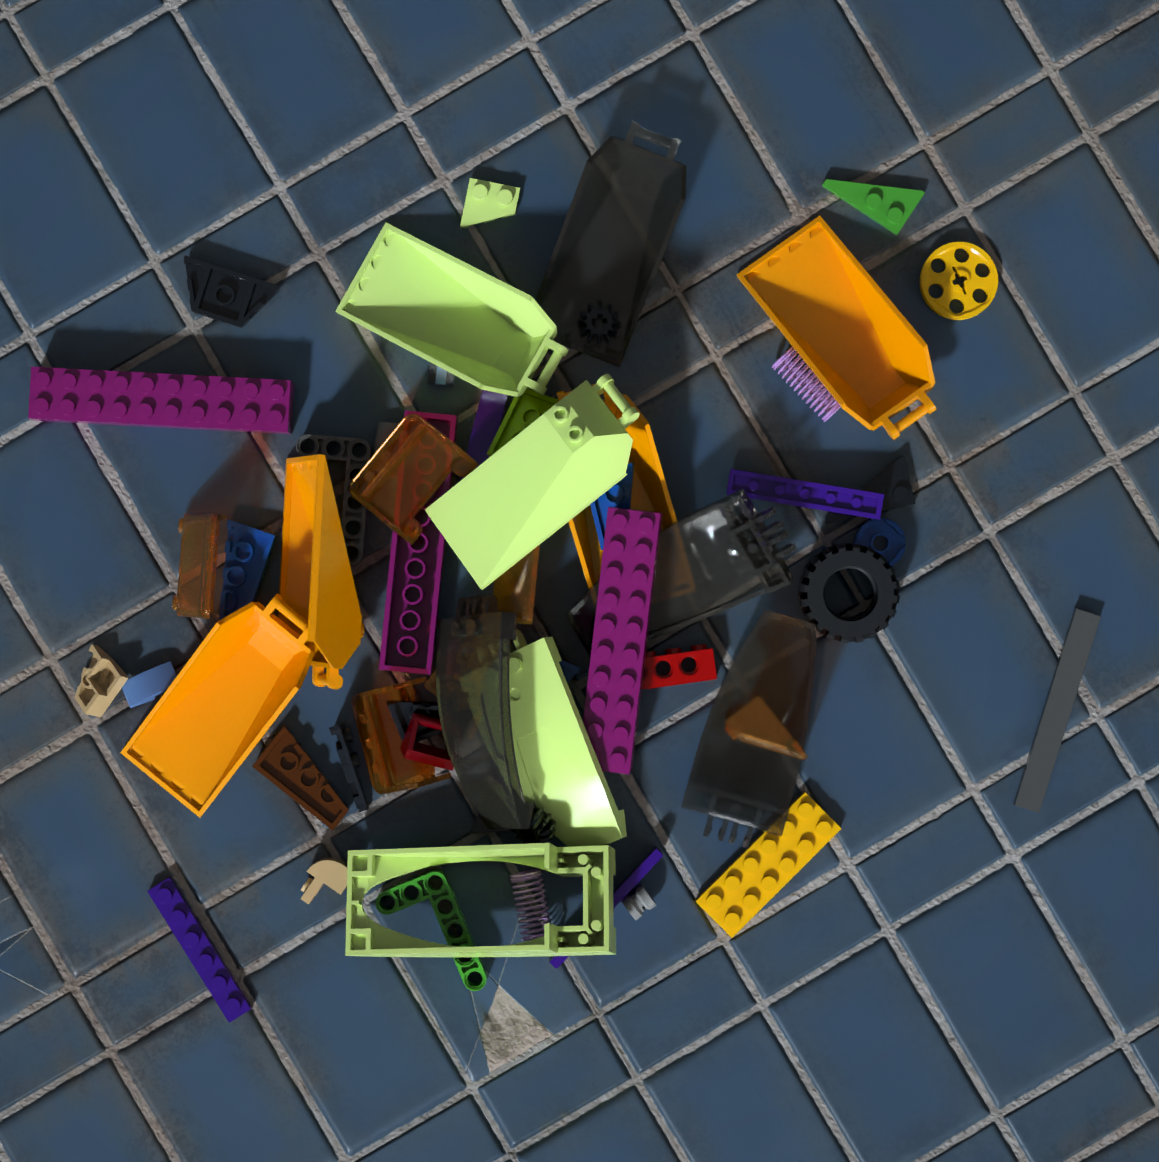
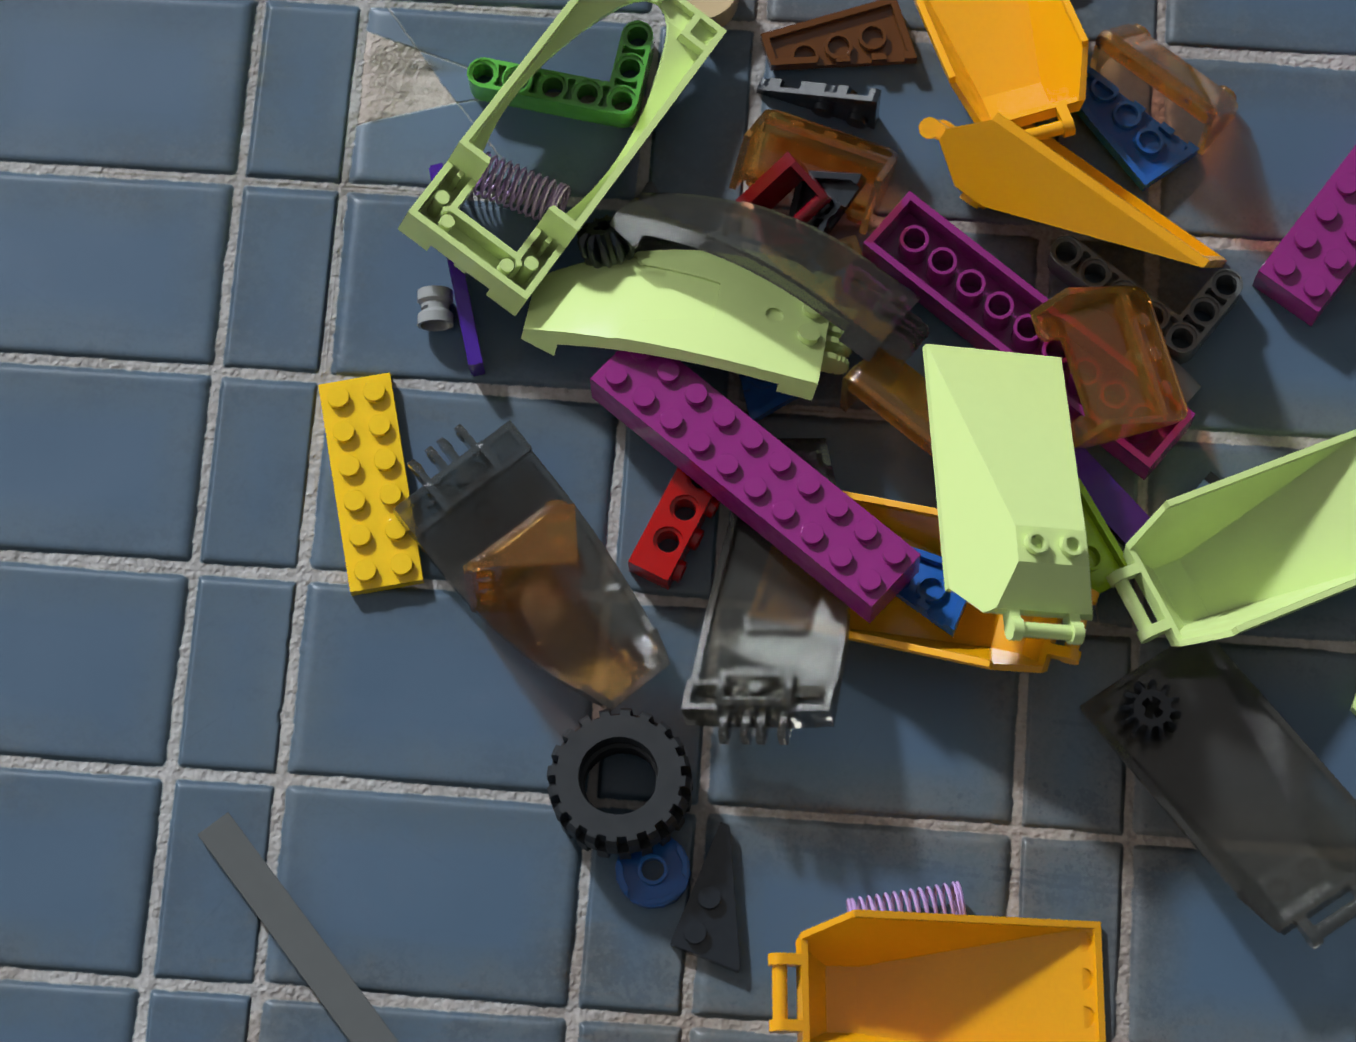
camera: 130 degrees right, 15 degrees down
(806, 494) = (774, 816): dark purple plate -> none

